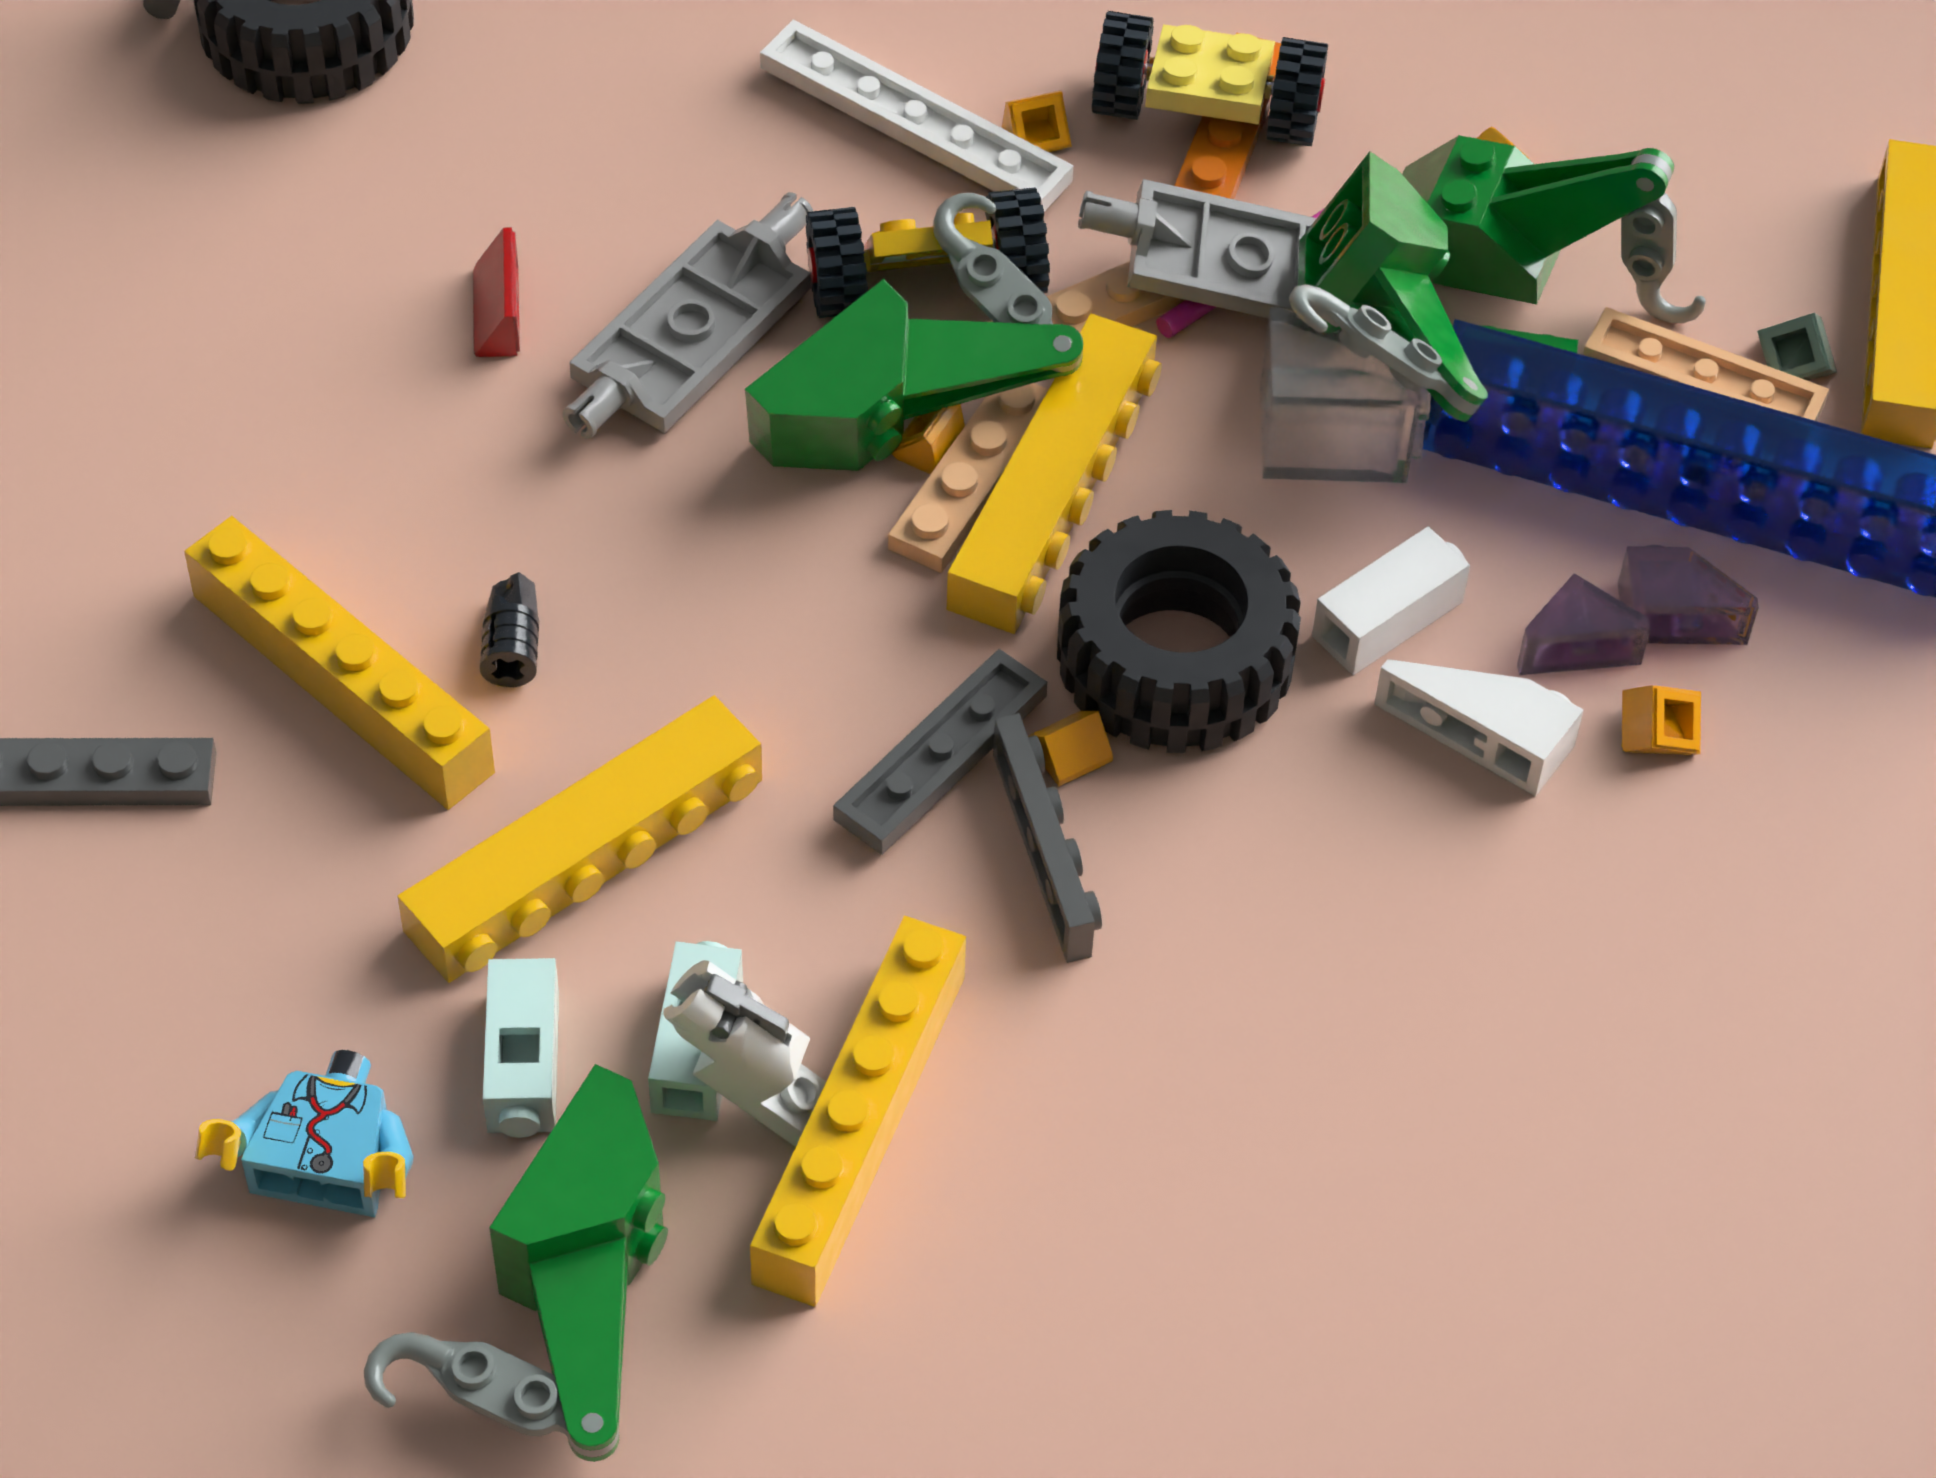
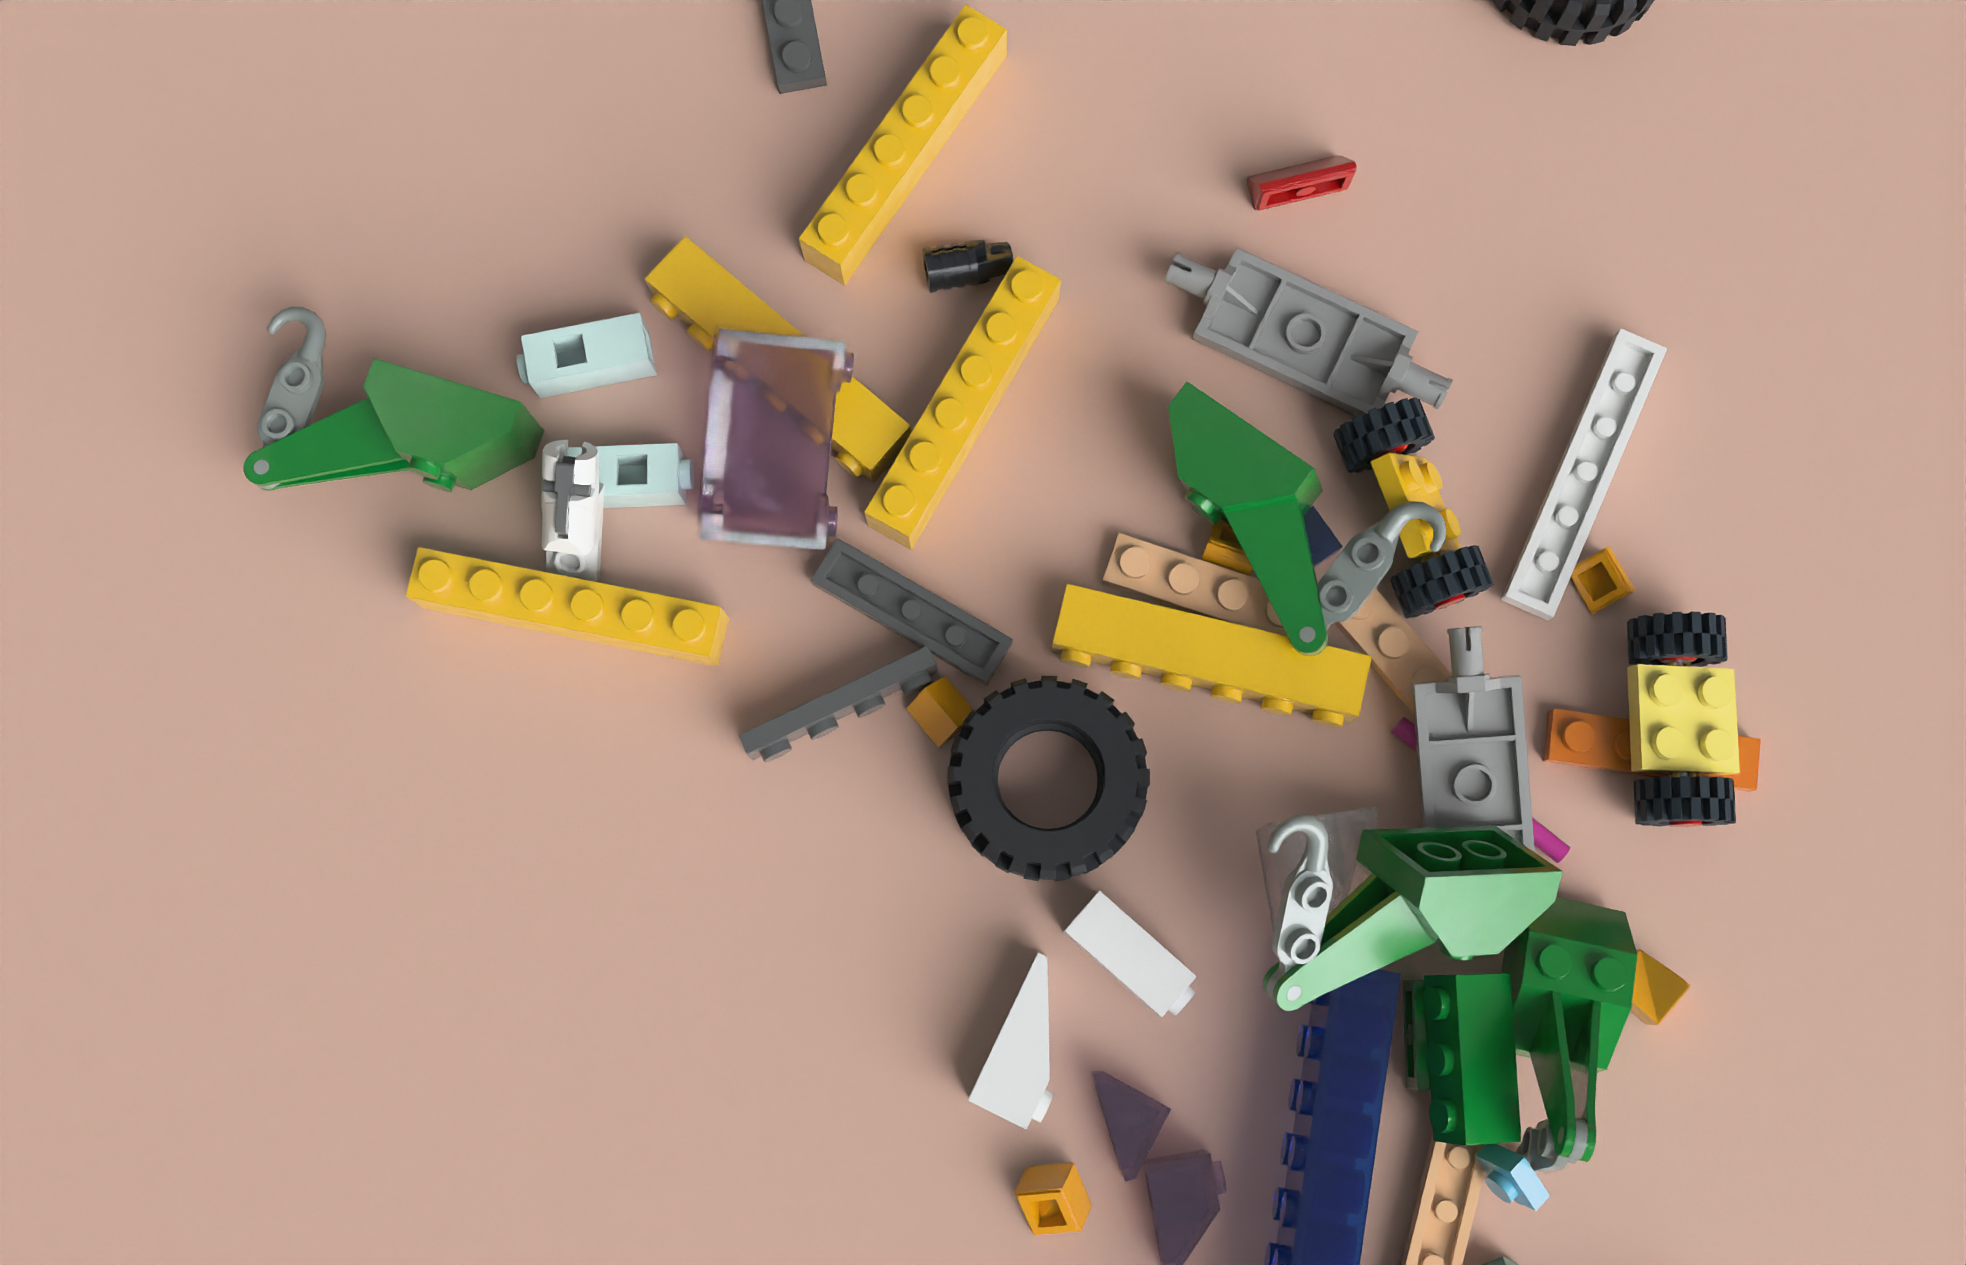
camera: 85 degrees right, 25 degrees up
(317, 1140) = (486, 236): medium azure torso -> none
(691, 842) = (770, 437): none -> windscreen
(694, 650) = (963, 403): none -> yellow brick
(1550, 296) = (1472, 1059): none -> green brick
(1674, 296) = (1511, 1176): none -> medium azure plate

